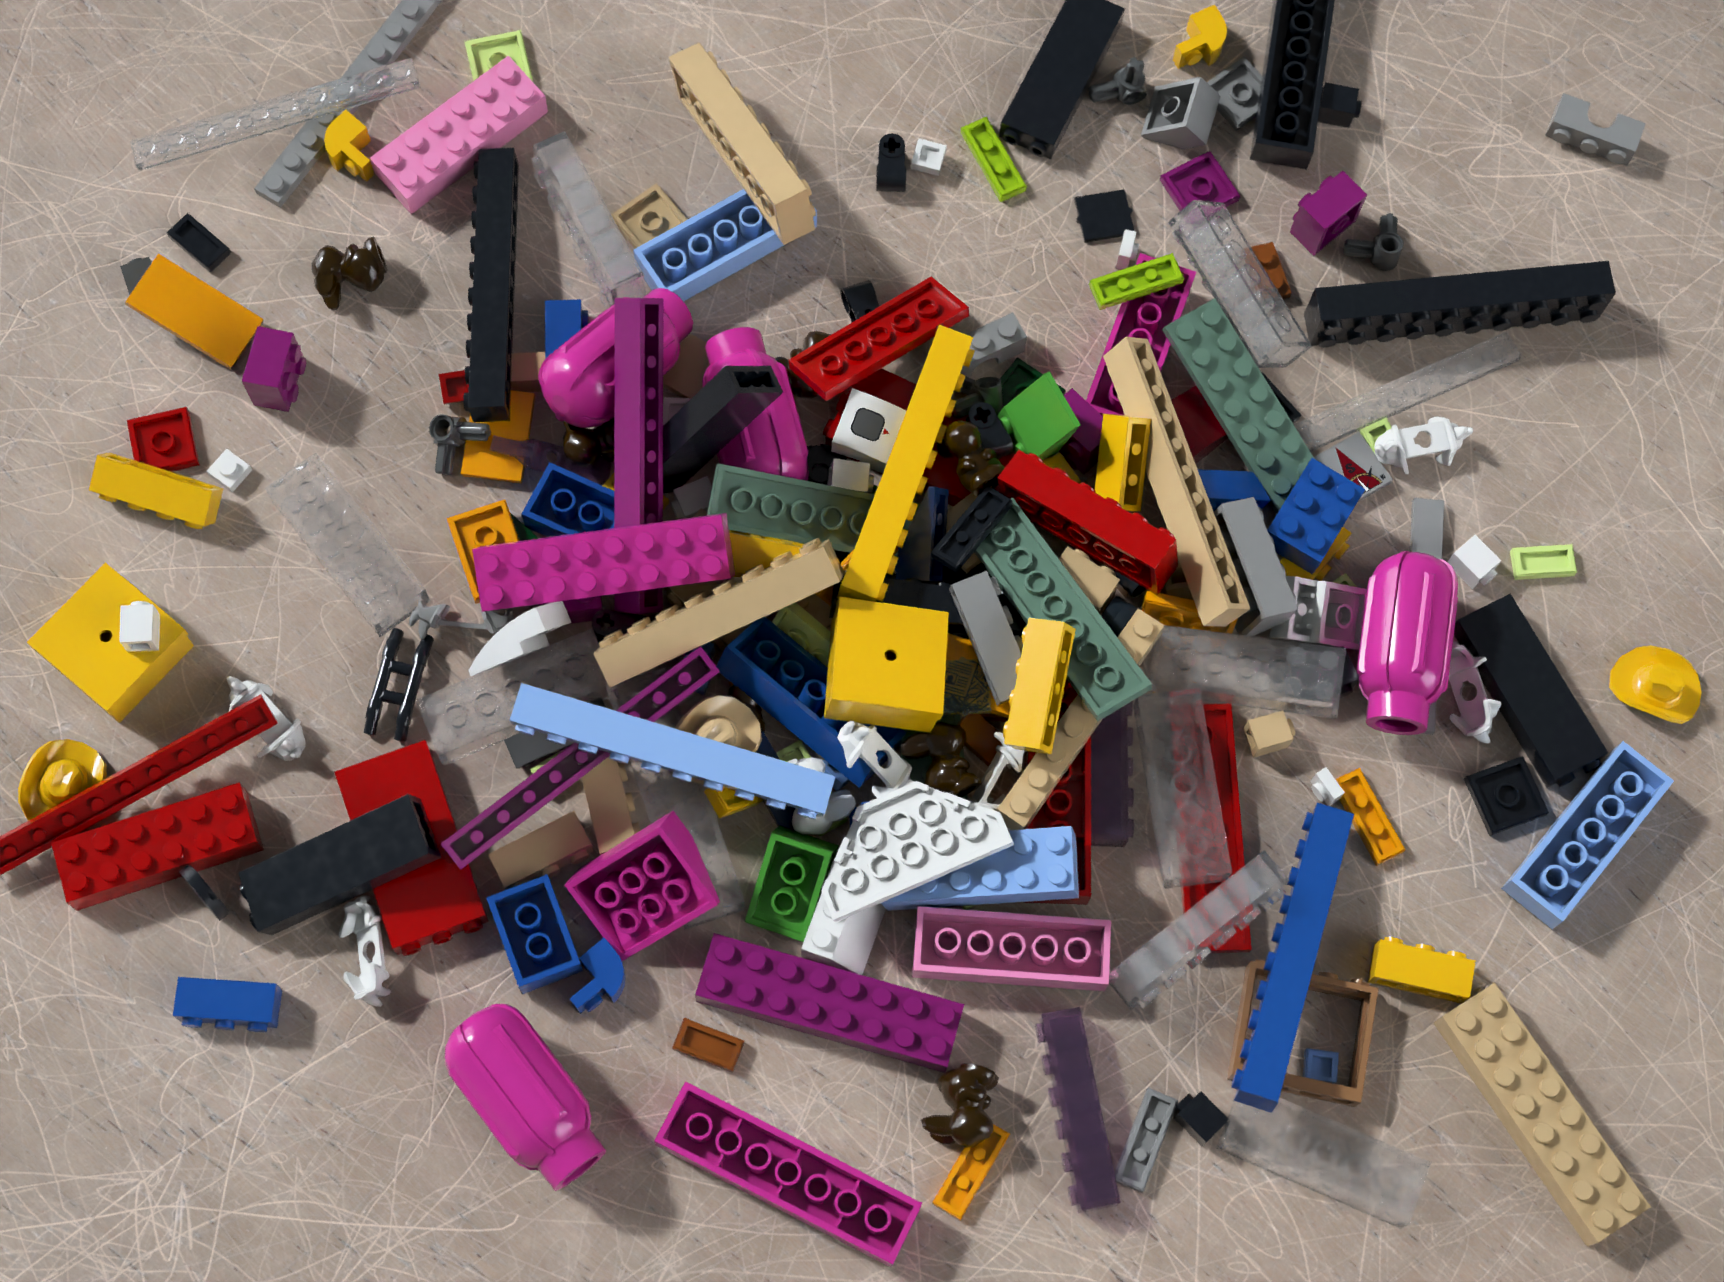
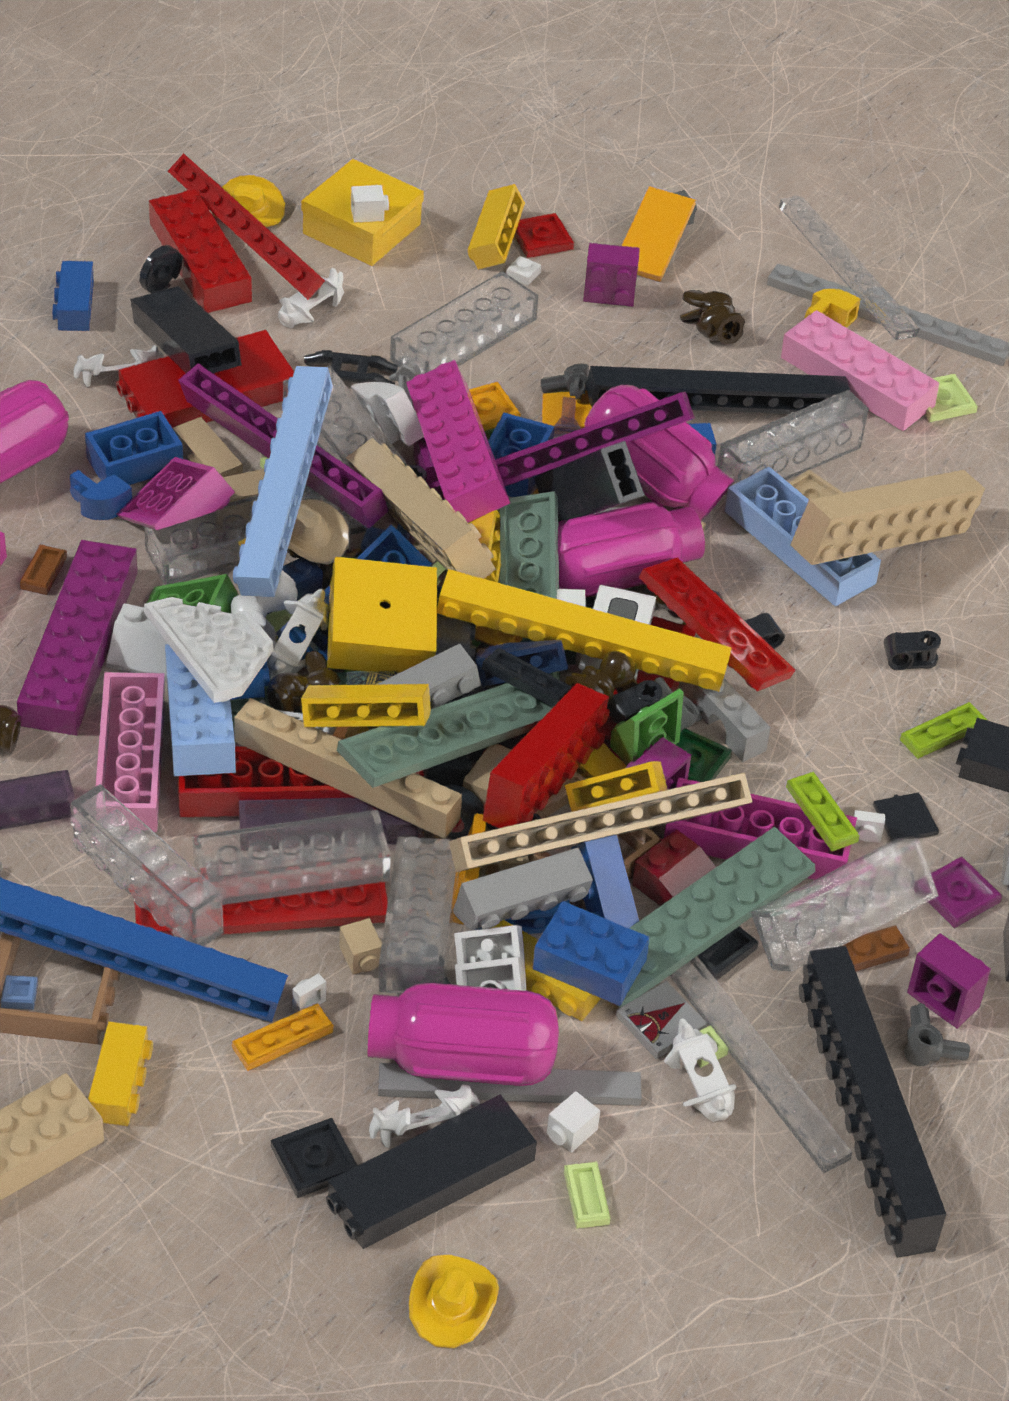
camera: 85 degrees right, 25 degrees down
(198, 242) = (722, 241): black tile -> none
(928, 157) = (929, 678): white plate -> none
(1587, 835) = (271, 1215): light blue brick -> none

